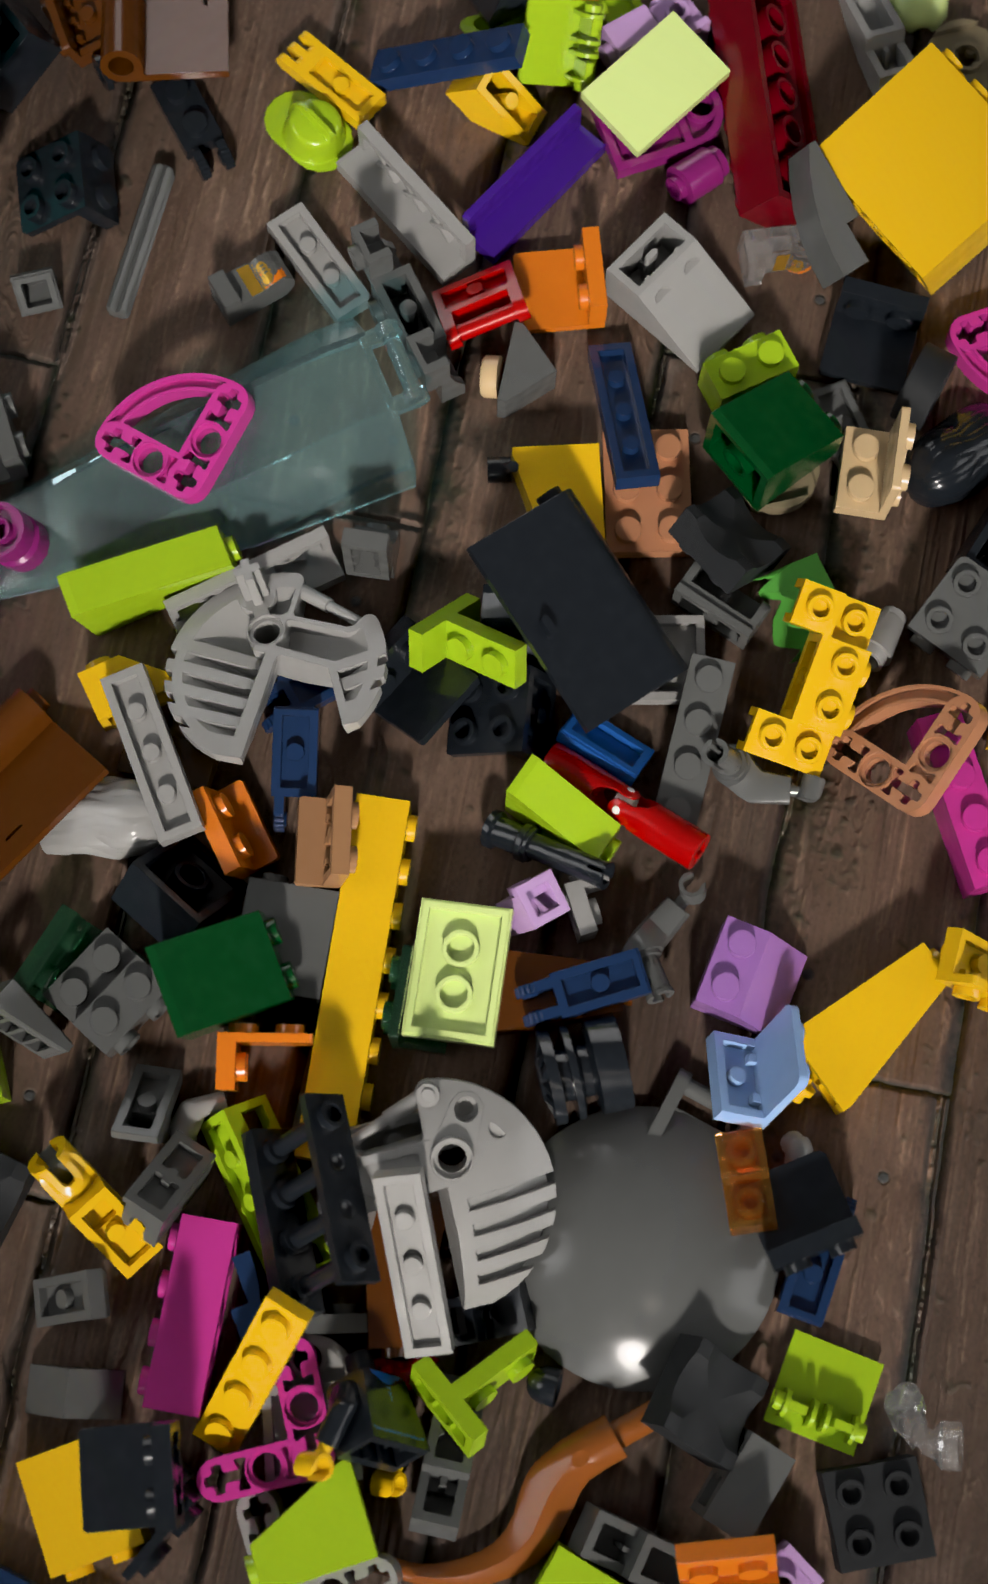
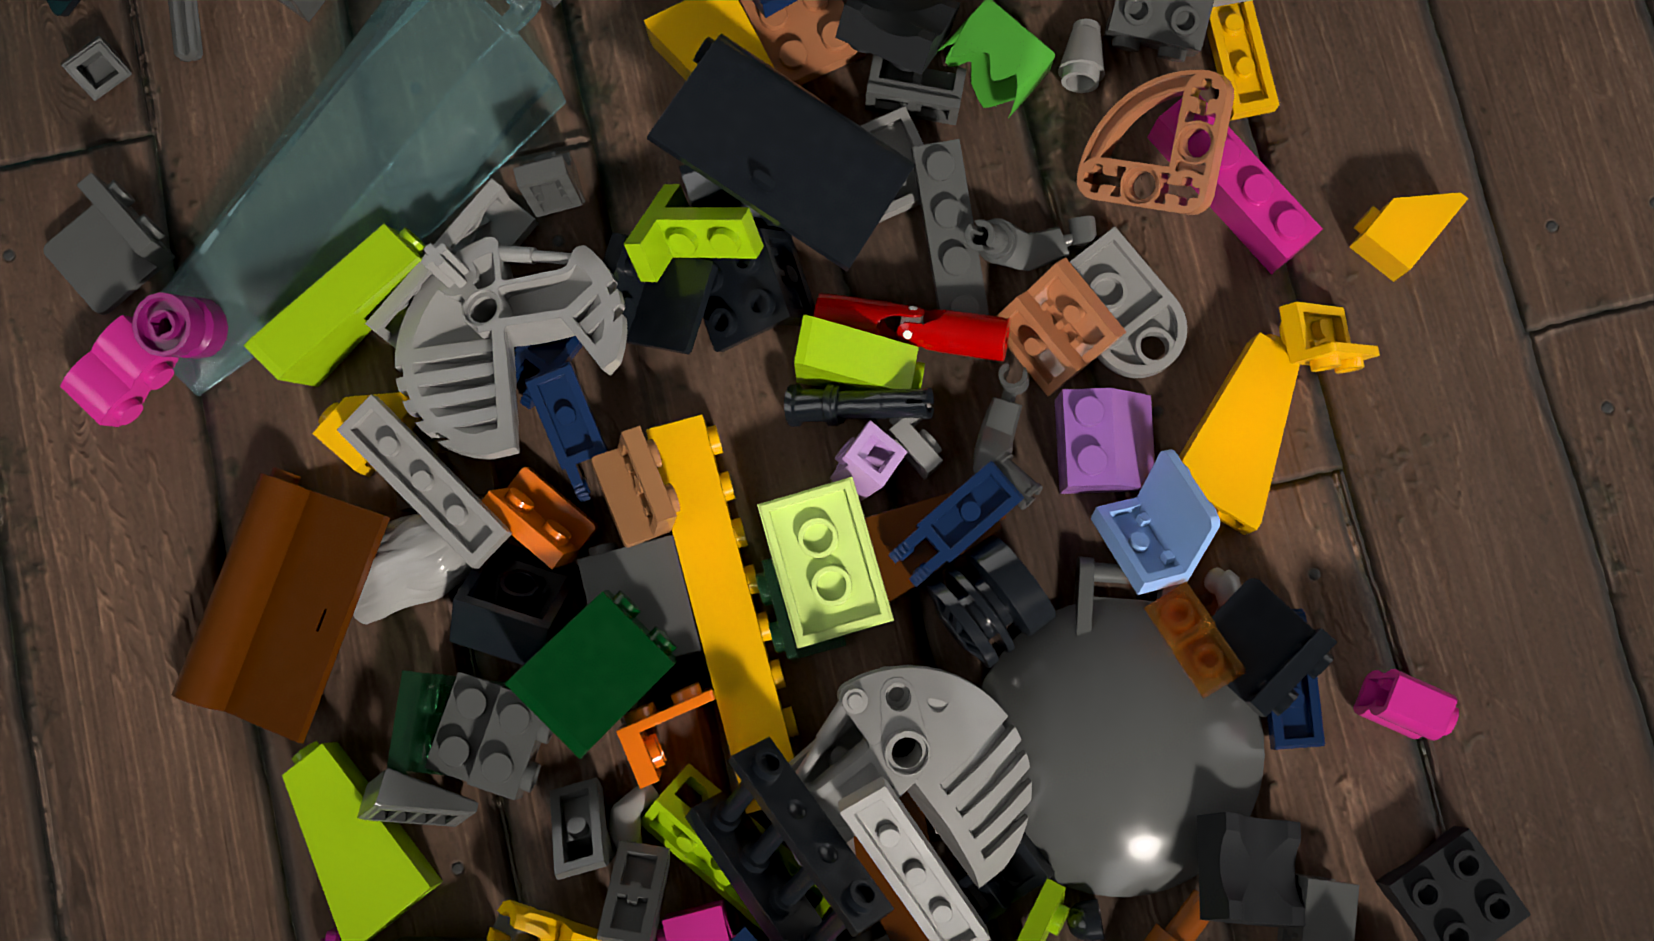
camera: 20 degrees left, 5 degrees up
(178, 464) = (314, 179): dark pink beam -> none
(501, 469) = (642, 48): black hand -> none
(607, 748) = (869, 277): blue tile -> none
(751, 862) = (1059, 327): none -> nougat slope
(812, 864) = (1136, 301): none -> light grey plate
(824, 681) = (1052, 120): yellow bracket -> none
(824, 1392) = (1353, 806): lime hinge -> none
(906, 1413) = (1442, 793): clear arm -> none
(907, 1322) = (1407, 705): none -> dark pink brick

